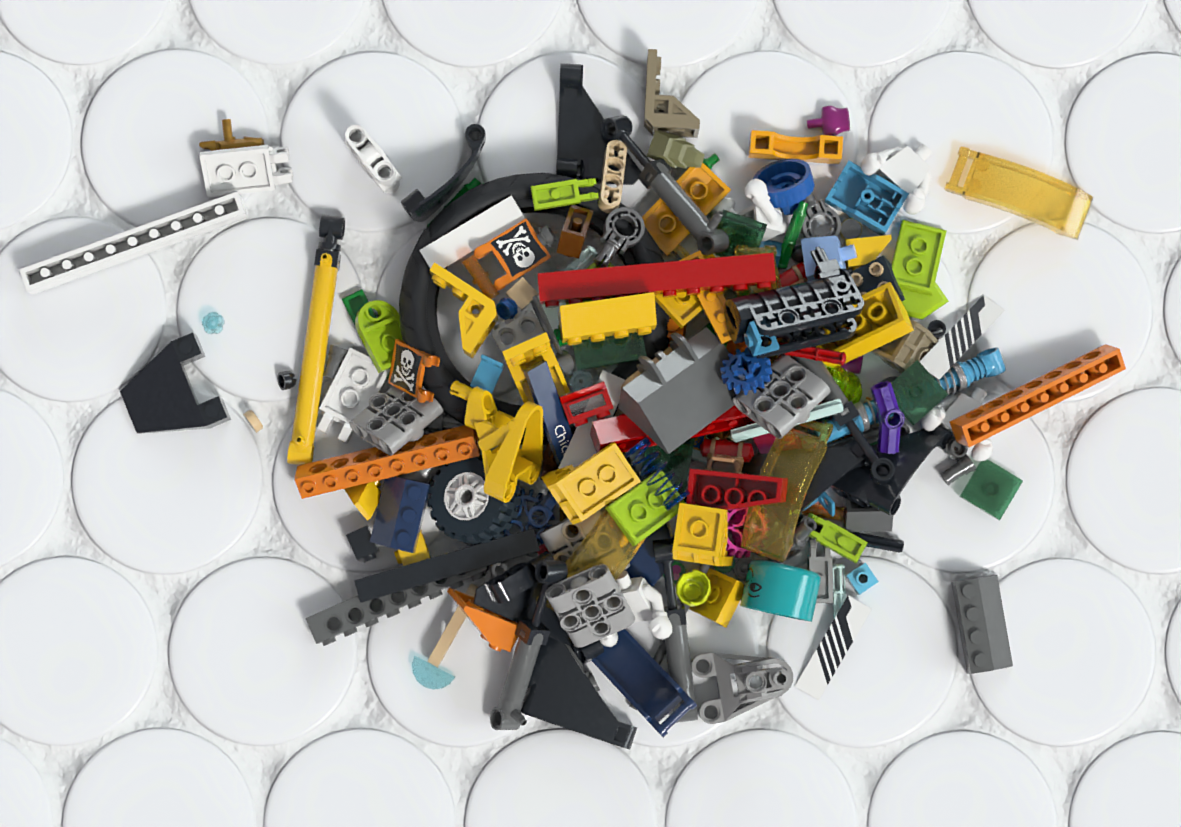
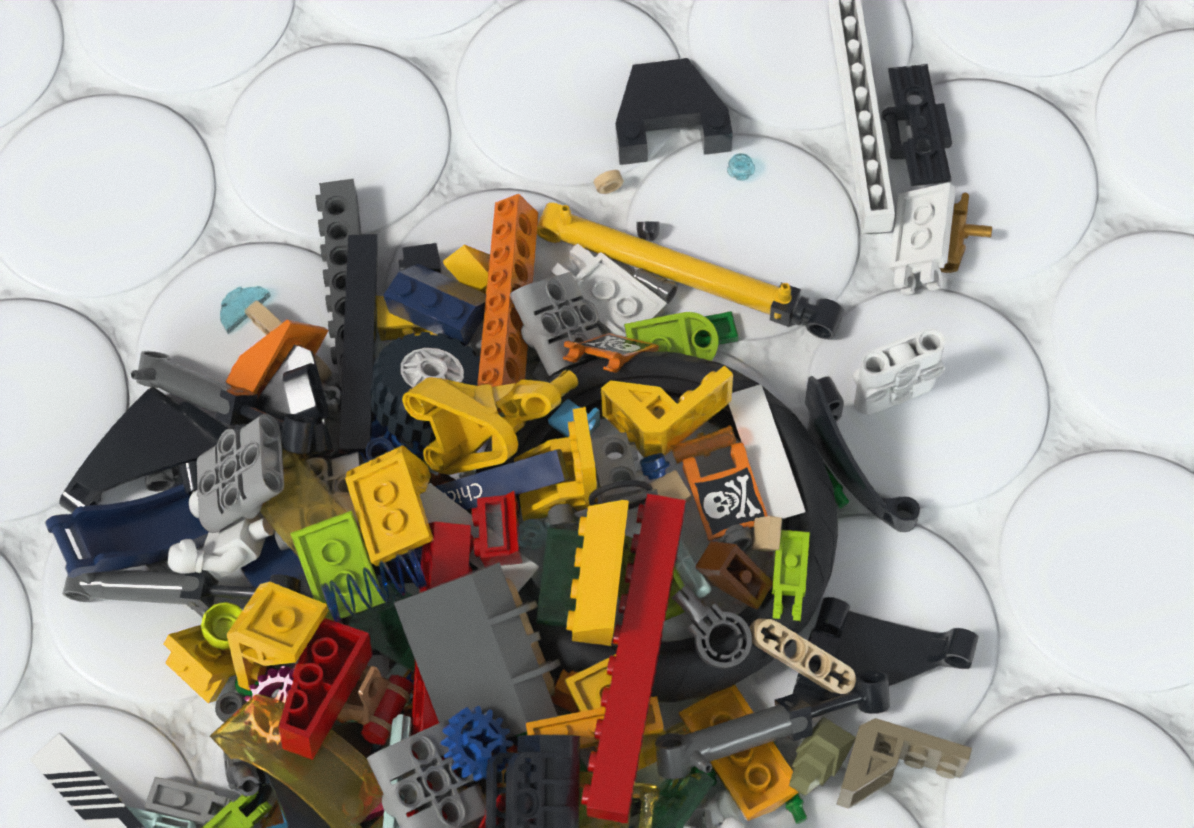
camera: 110 degrees right, 20 degrees down
(141, 187) = (927, 124): none -> black piece
(540, 215) = (766, 534): none -> tan tile
(727, 704) = (64, 677): light grey connector -> none
(753, 341) = (503, 753): dark azure bracket -> none
(781, 590) = (173, 730): teal piece -> none

